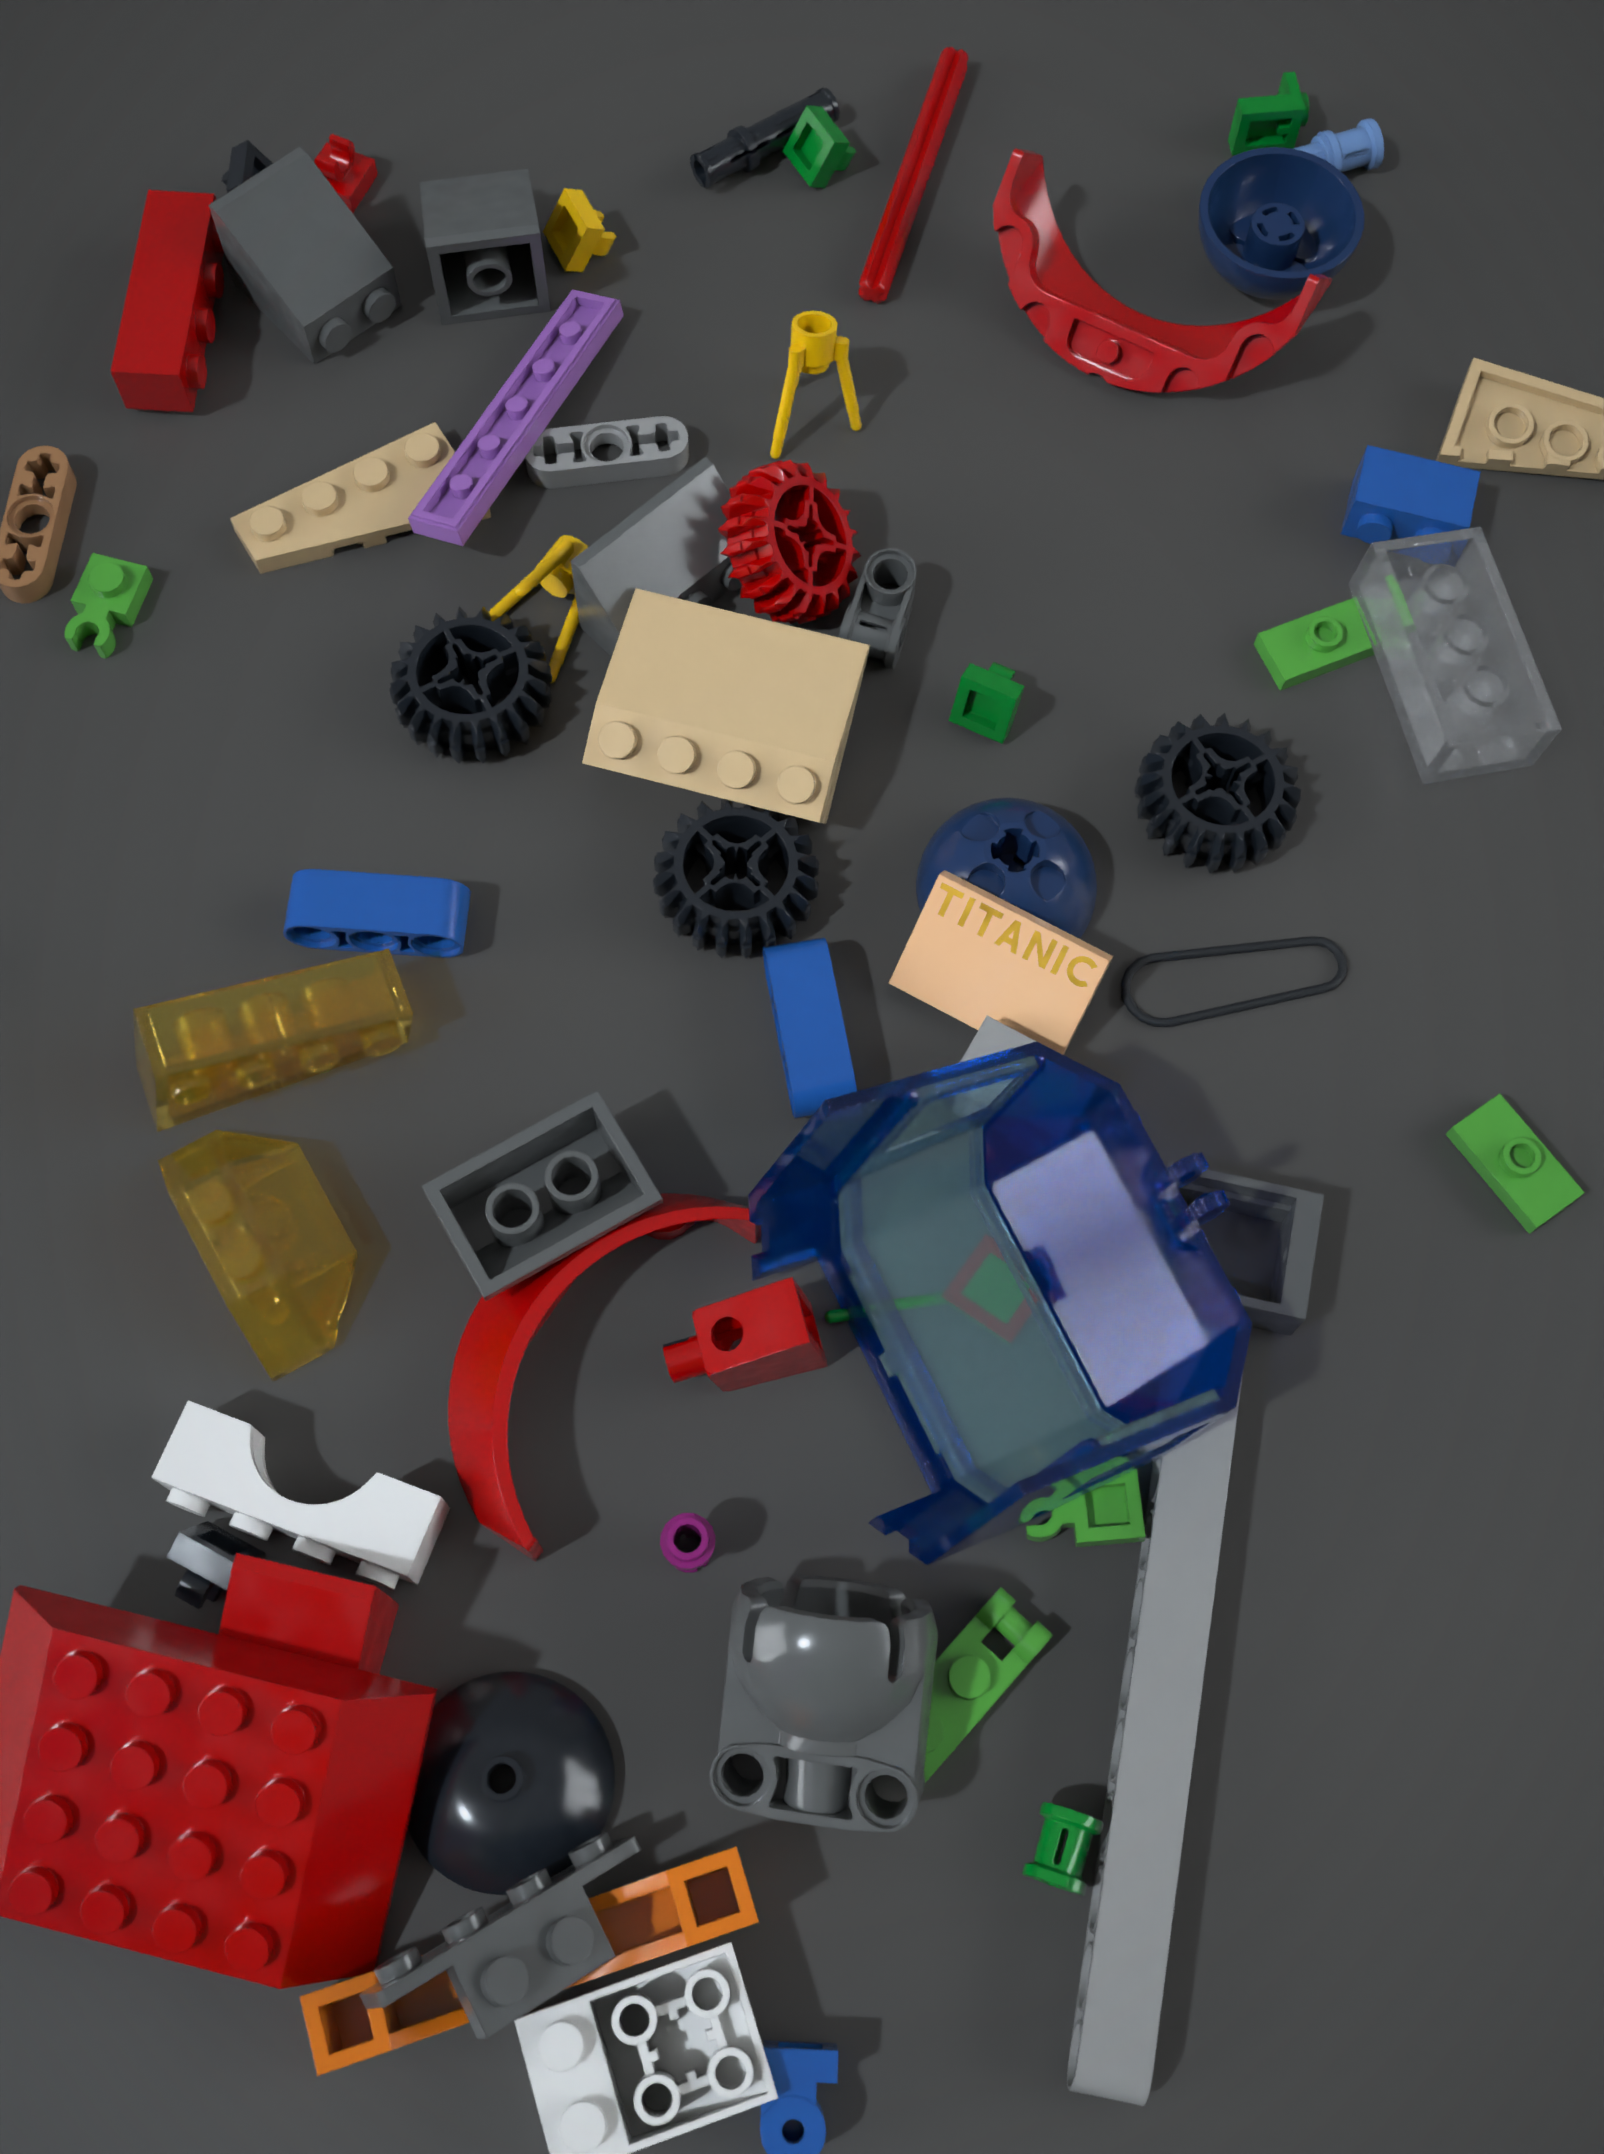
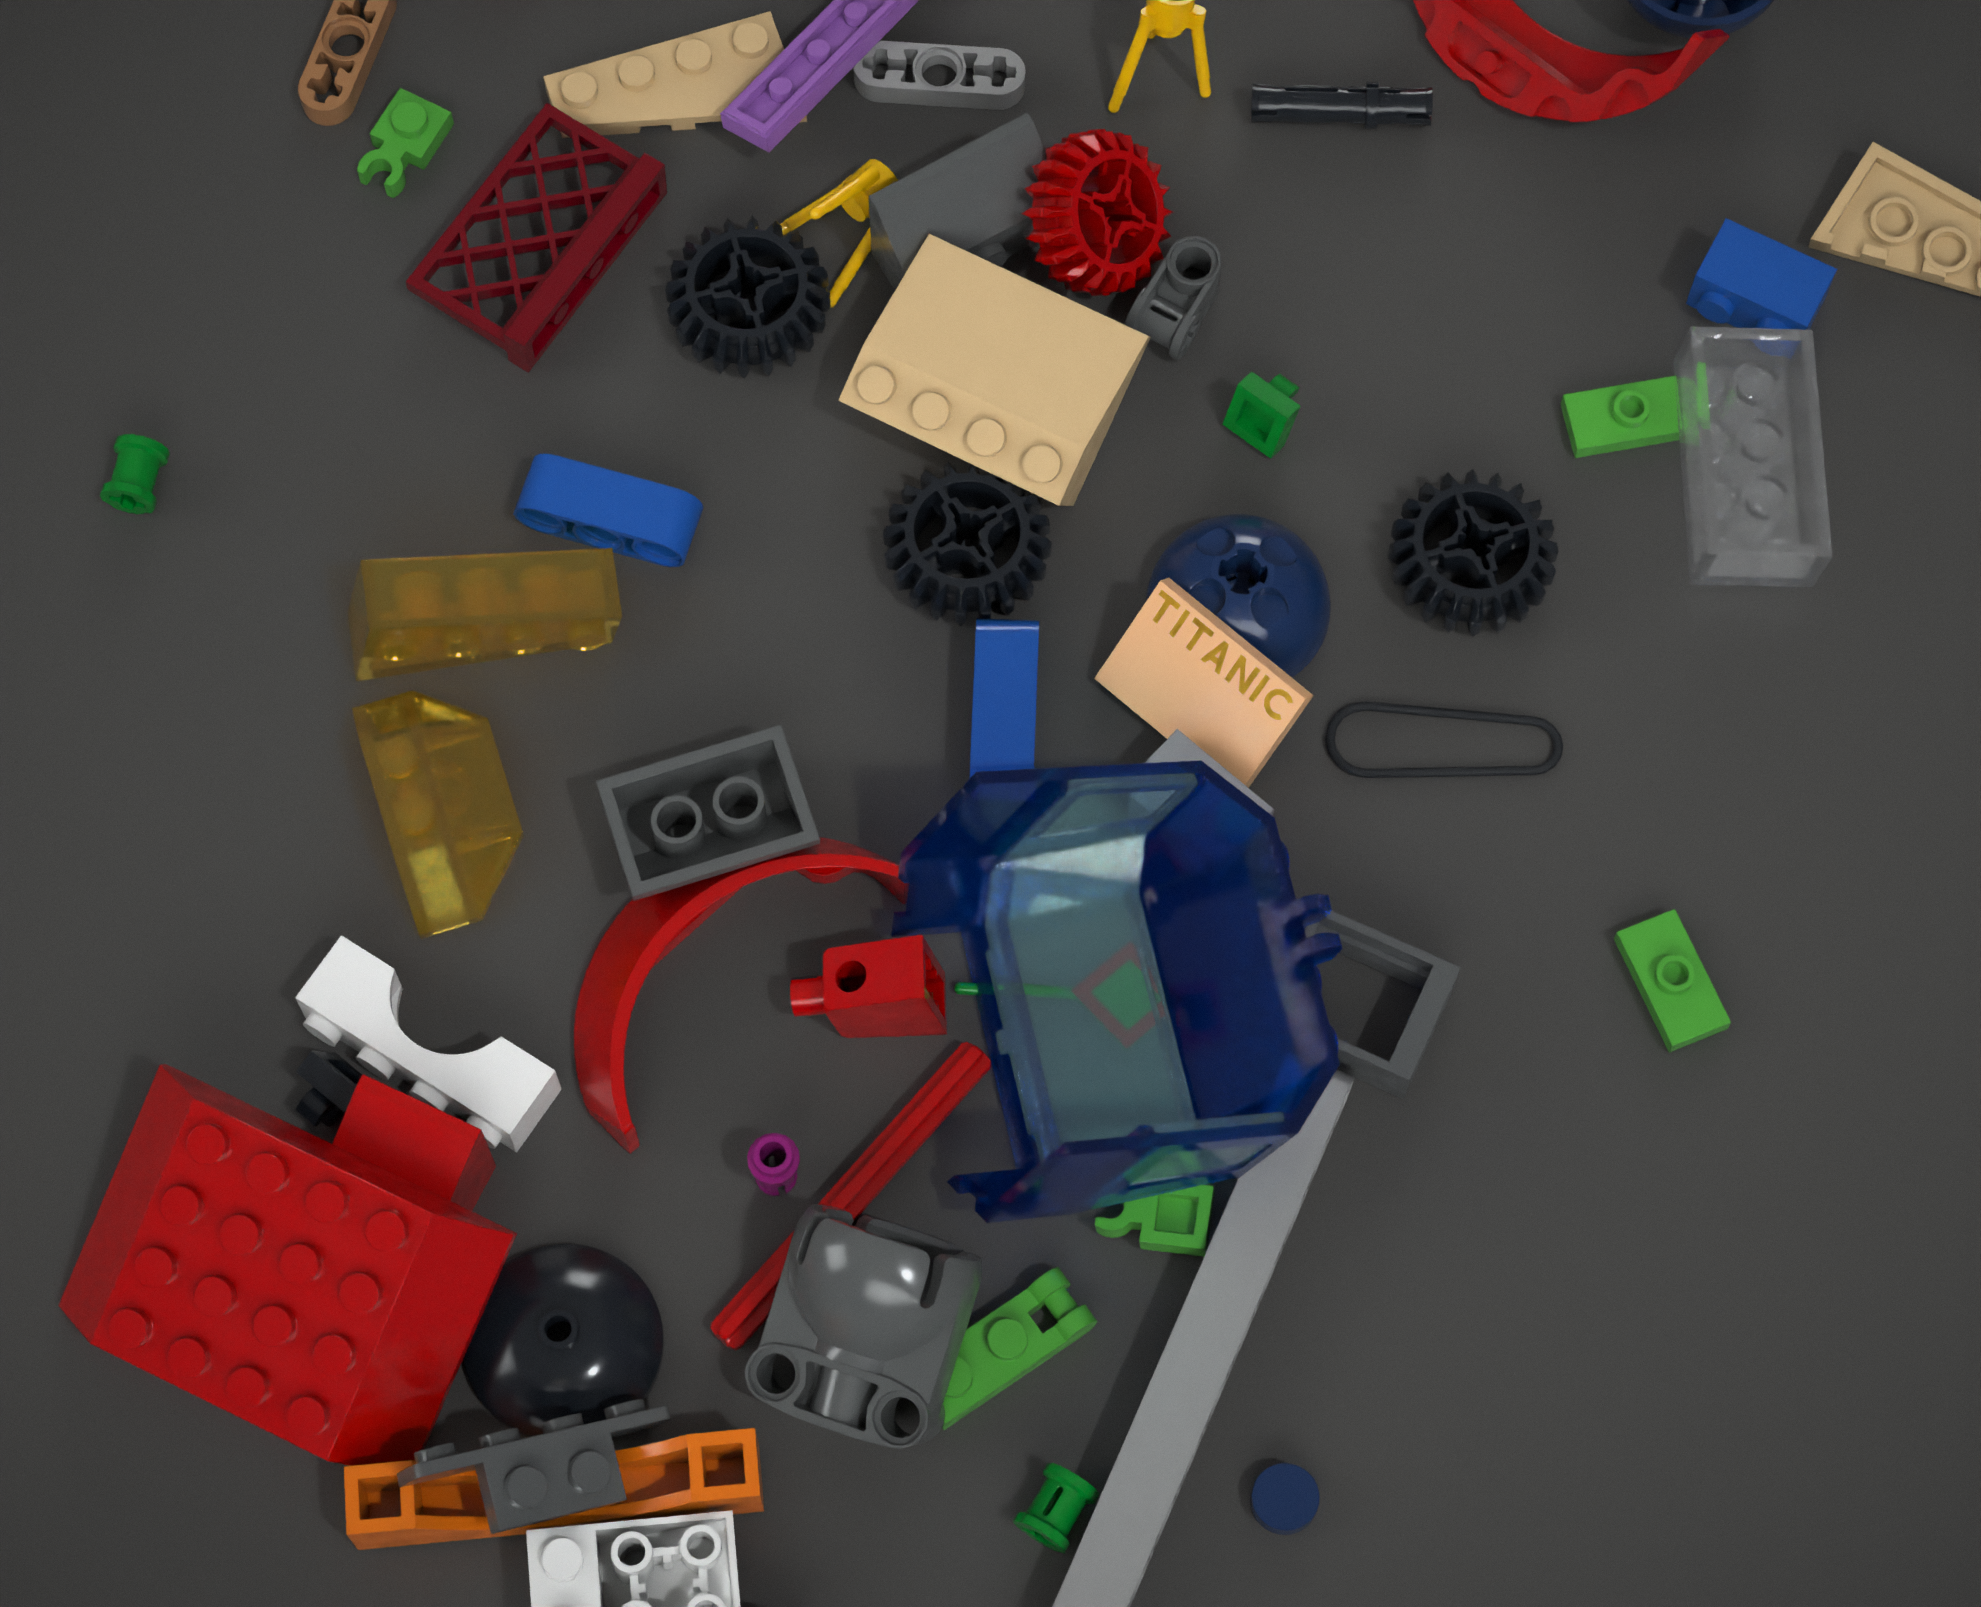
camera: 15 degrees right, 0 degrees up
(304, 675) = (587, 250): none -> dark red fence
(774, 1551) = (862, 1181): none -> red axle
(985, 412) = (1351, 104): none -> black pin
(1288, 1780) = (1284, 1499): none -> dark blue tile

